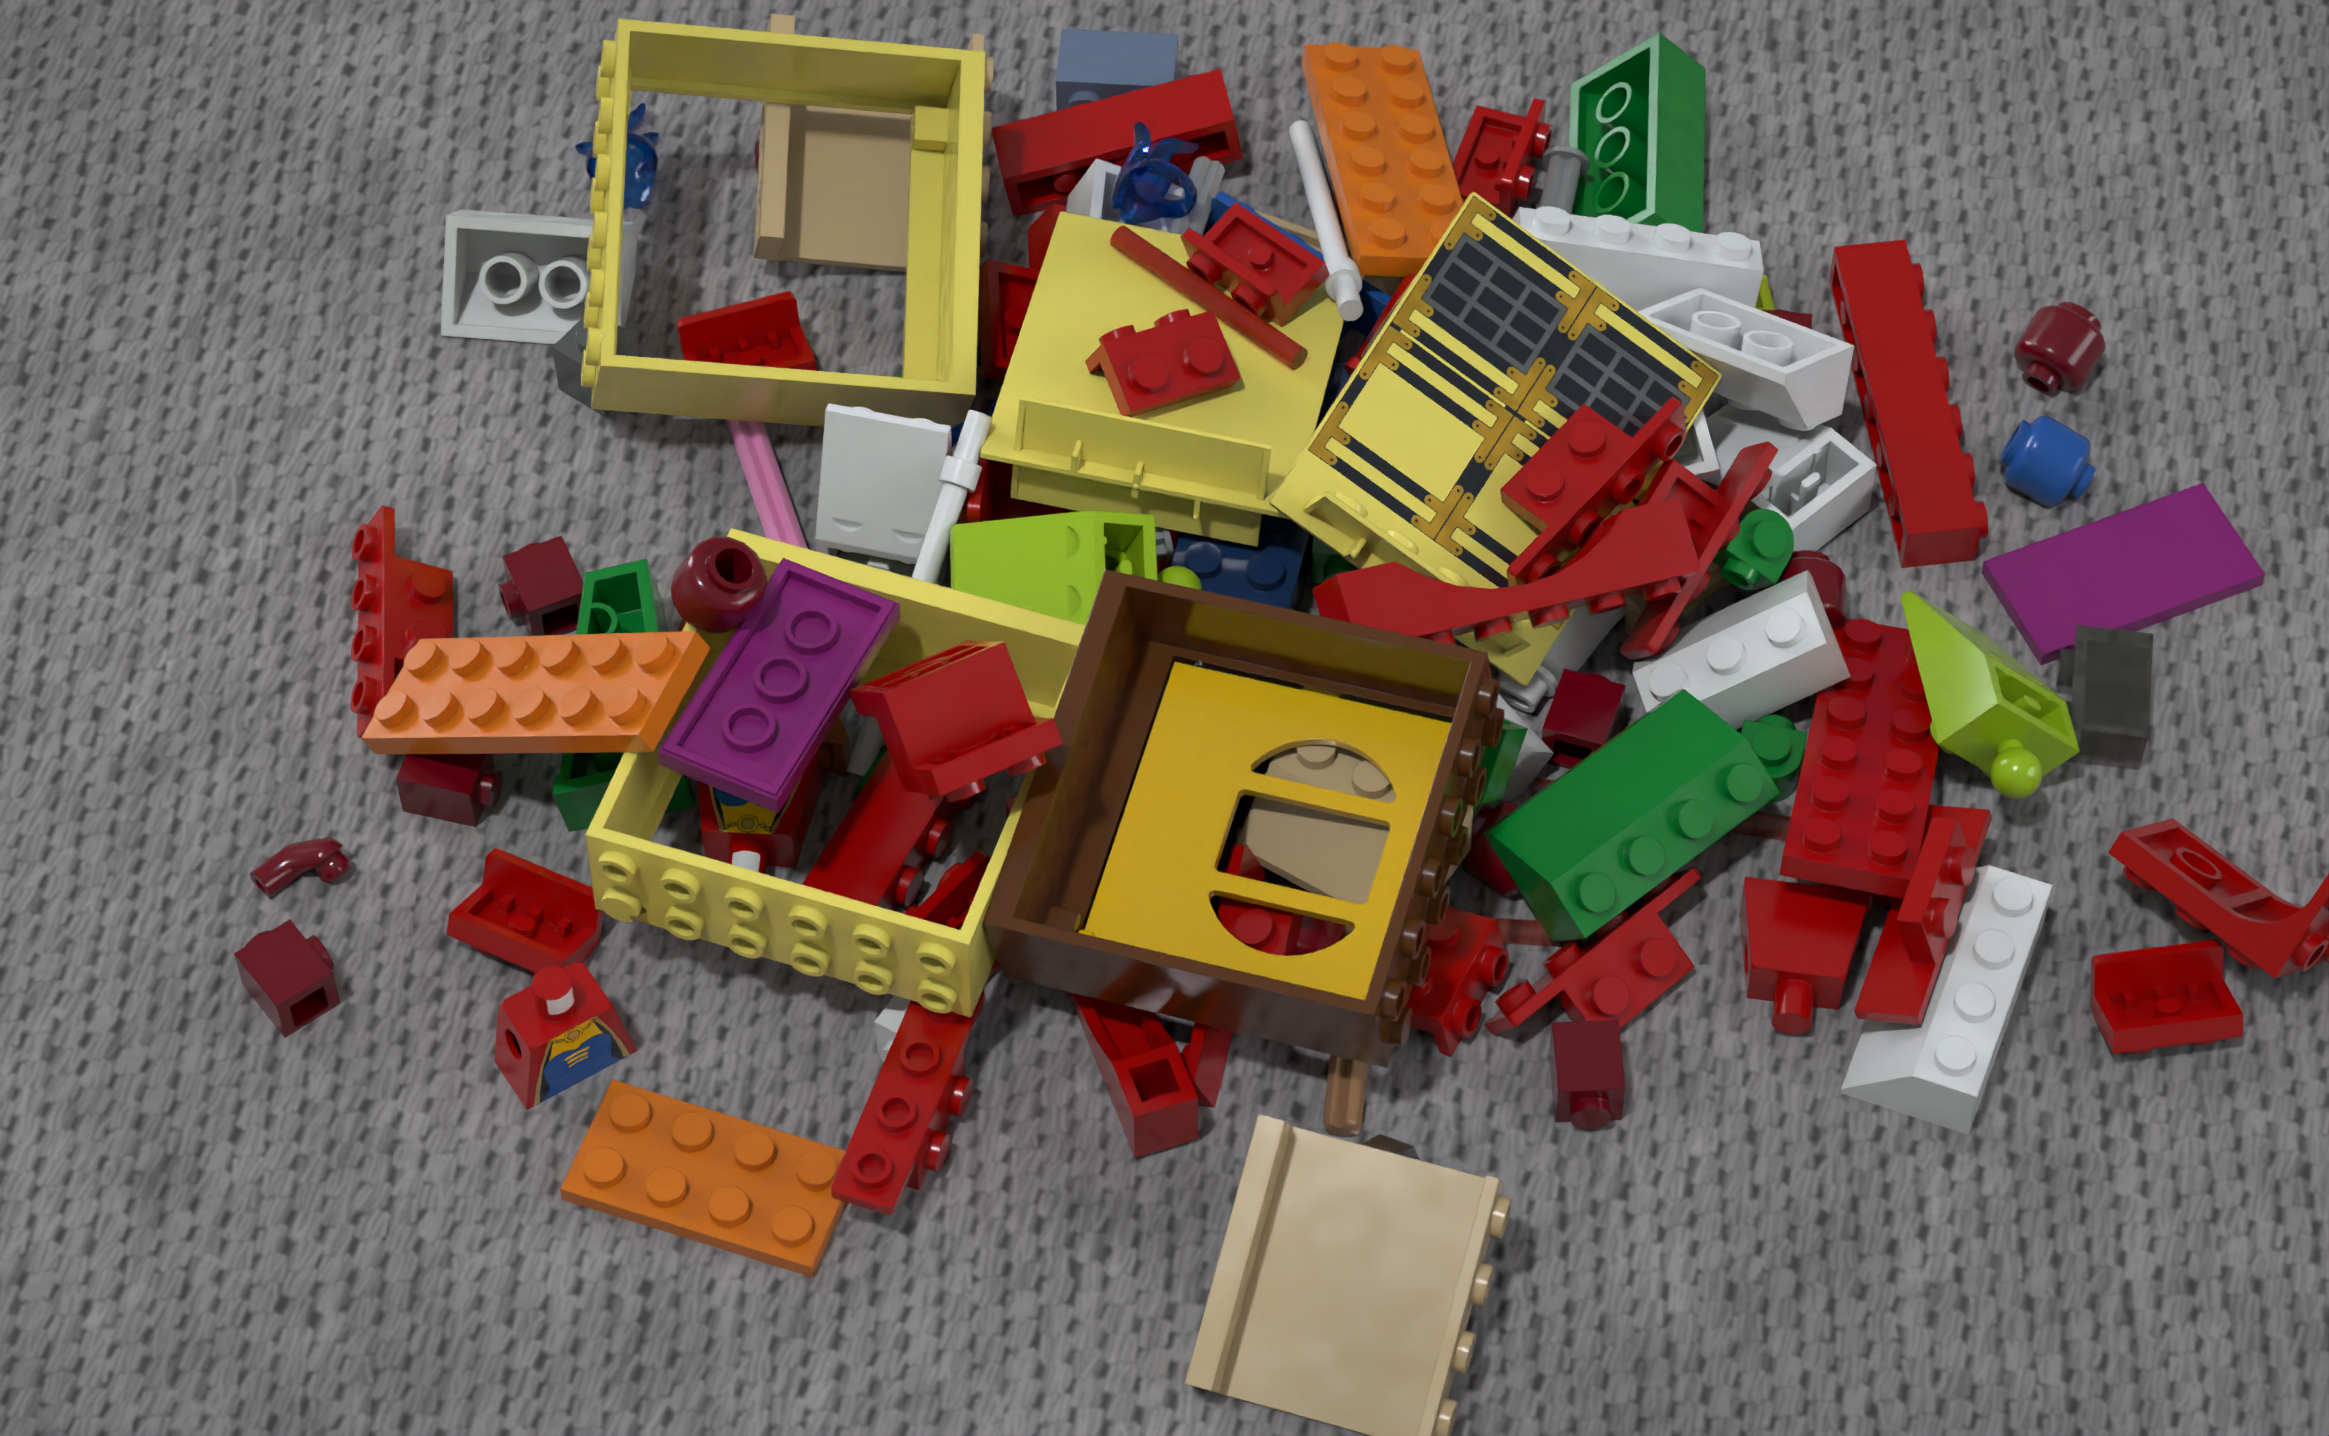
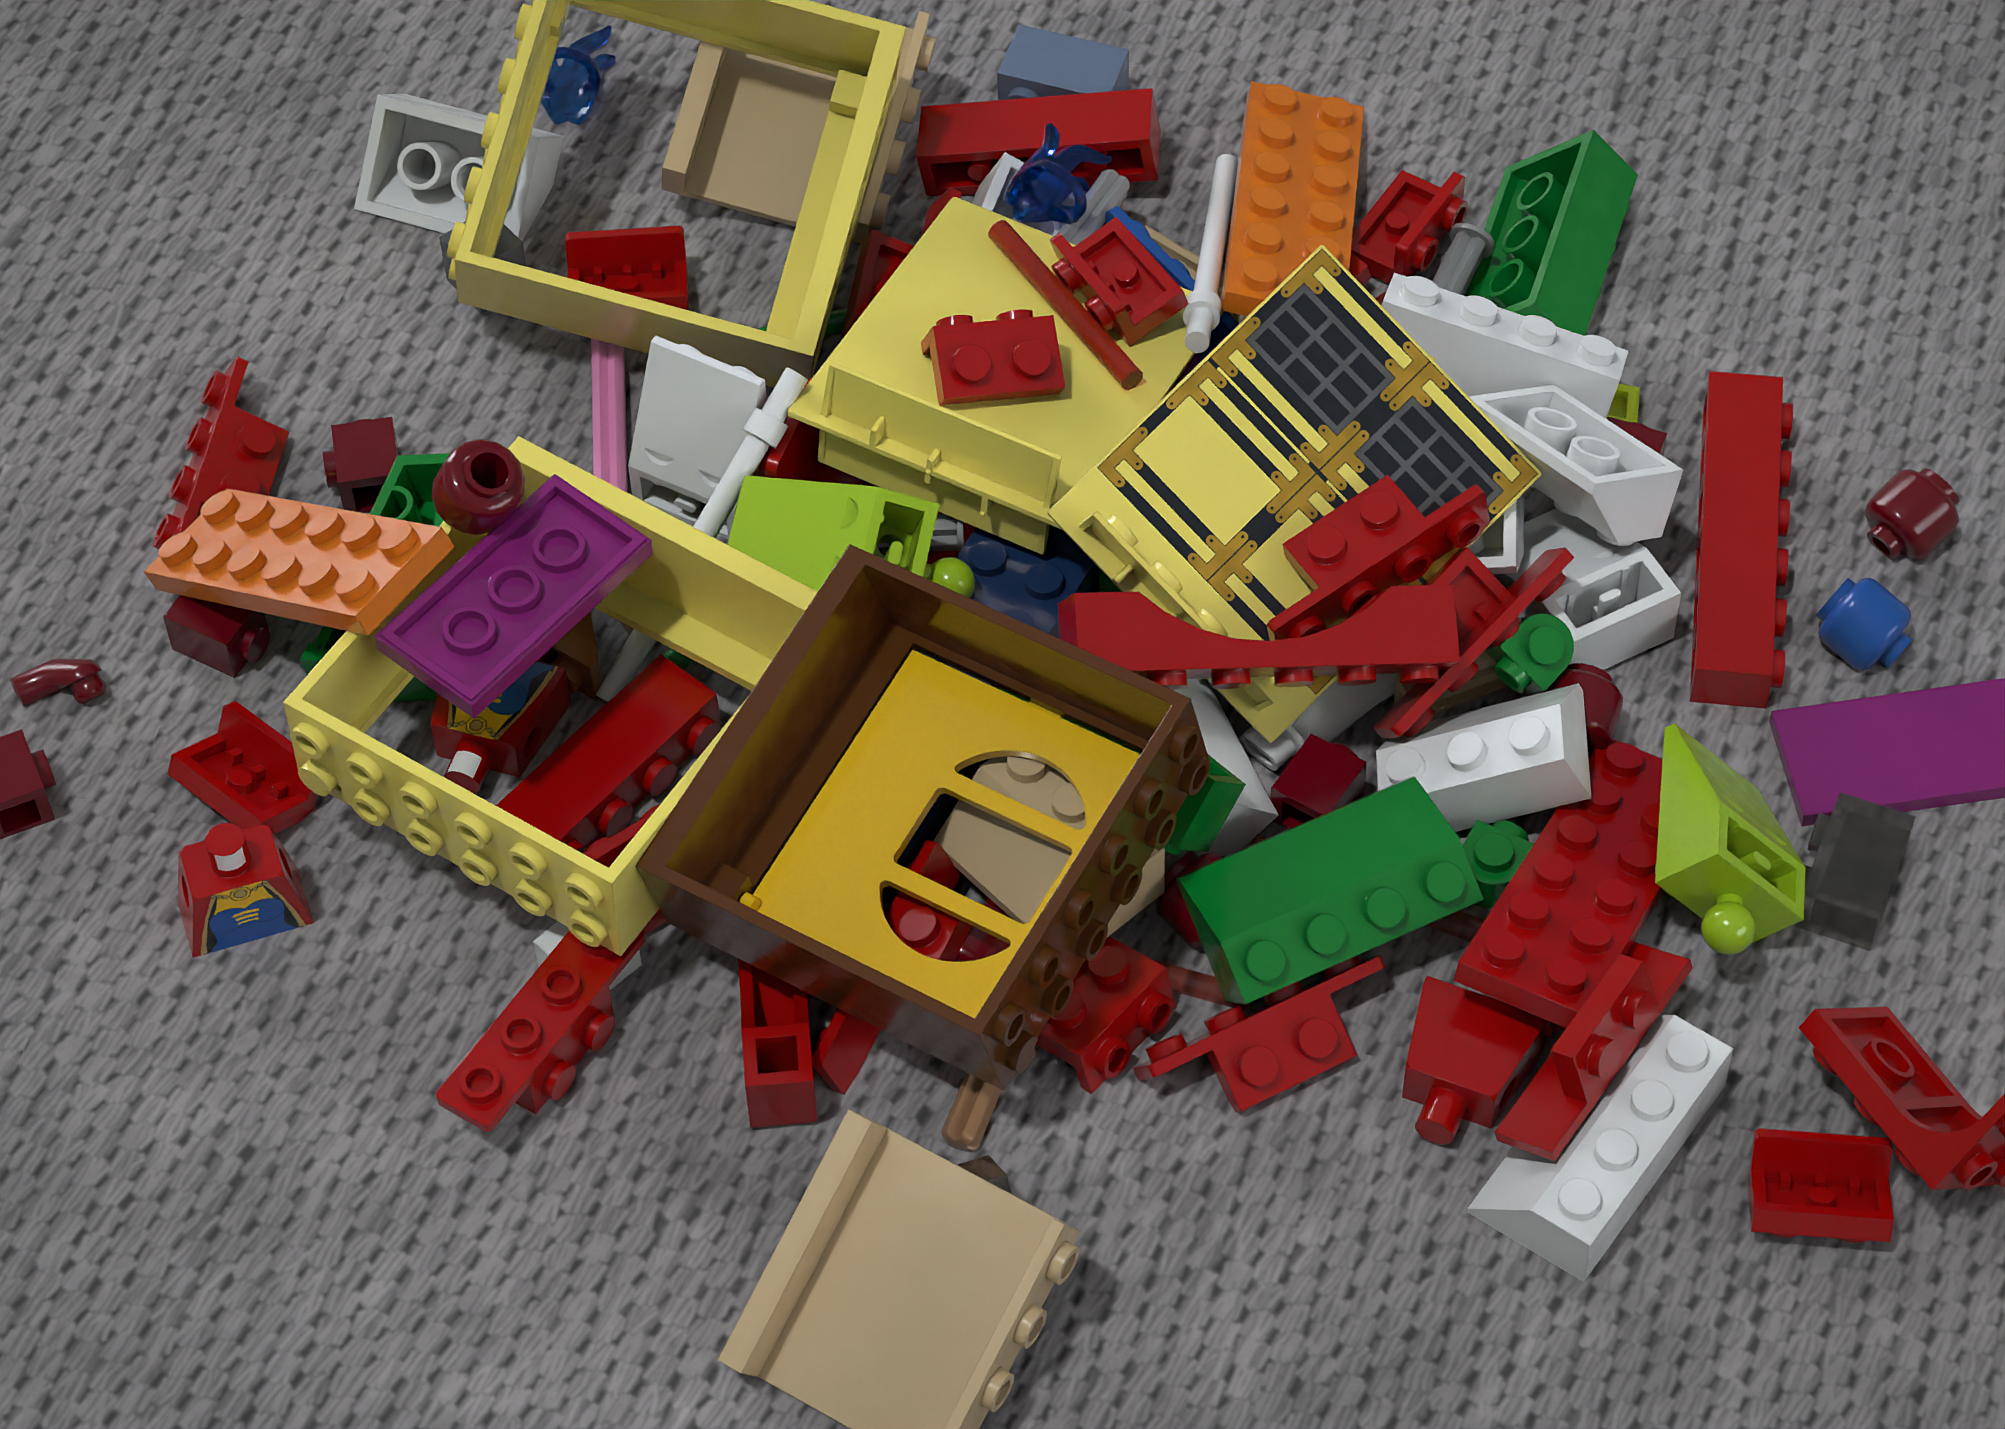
camera: 15 degrees right, 0 degrees up
(707, 1178) = (335, 1059): orange plate -> none
(957, 720) = (661, 663): red bracket -> none
(1587, 1072) = (1213, 1138): dark red brick -> none

